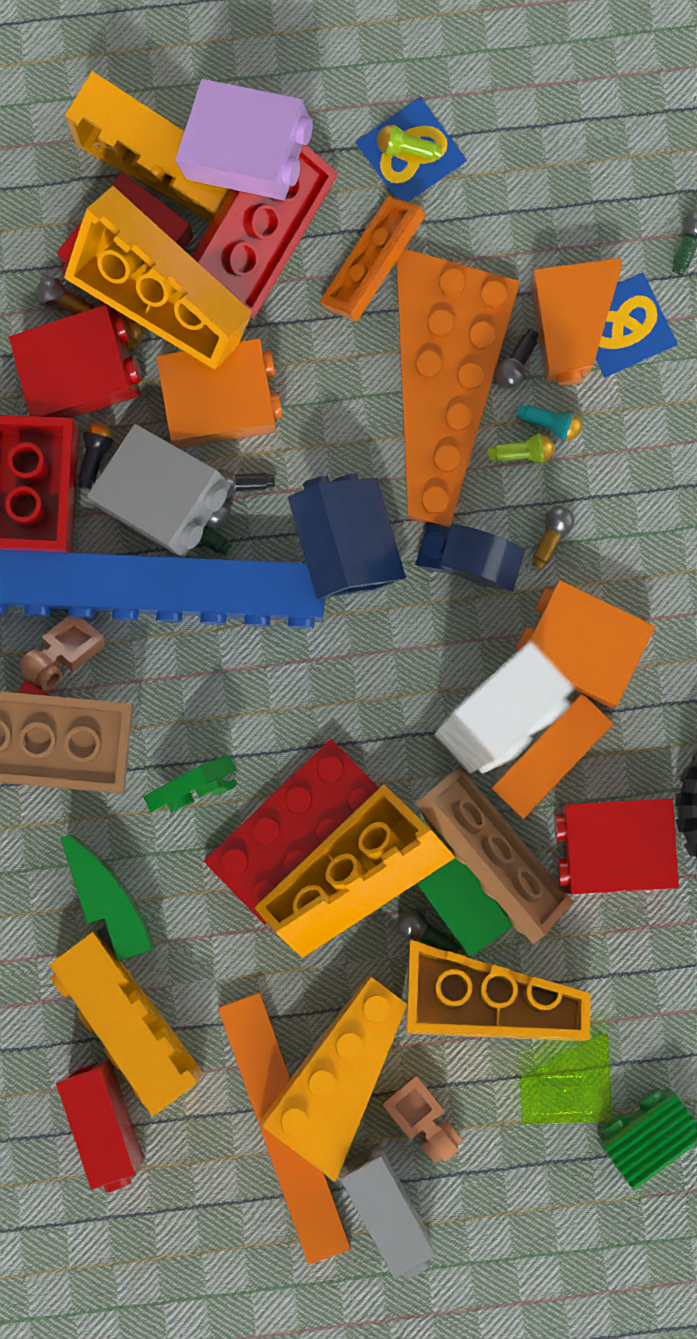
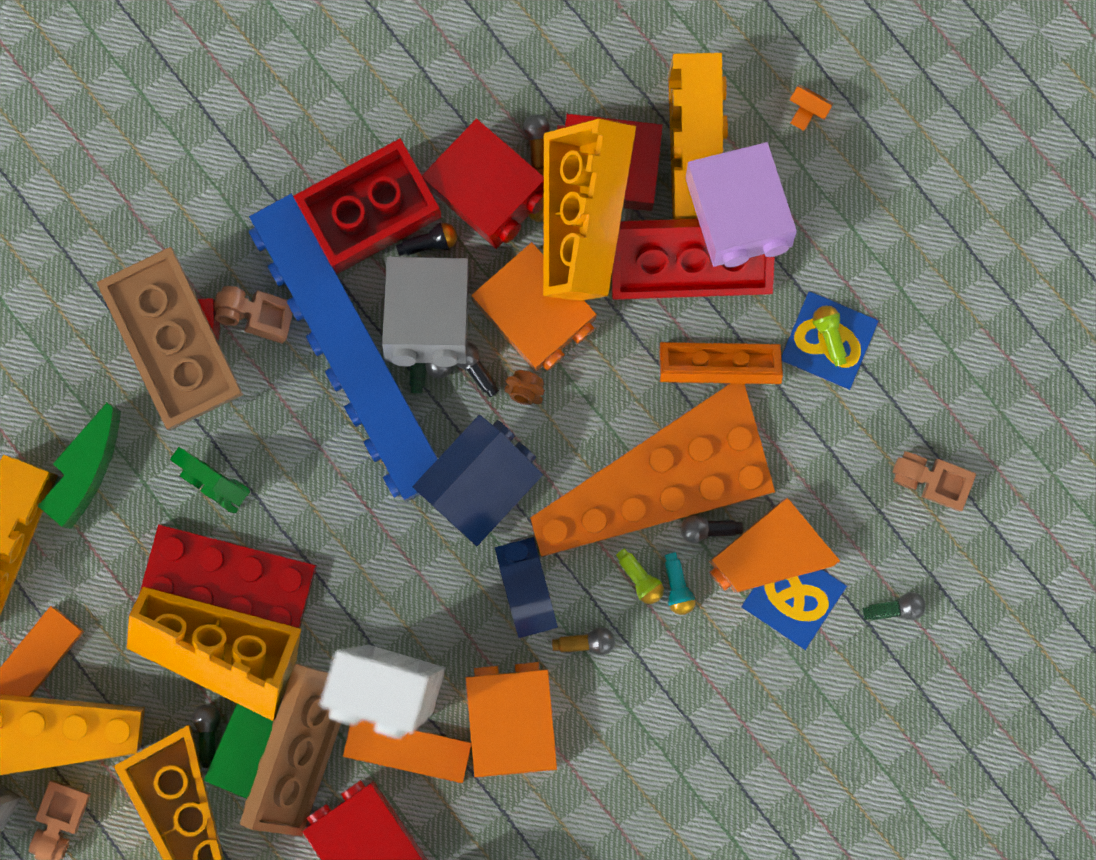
camera: 60 degrees right, 0 degrees up
(187, 35) = (810, 104): none -> orange tile
(286, 446) = (525, 387): none -> dark orange plate
(603, 126) = (944, 483): none -> nougat plate

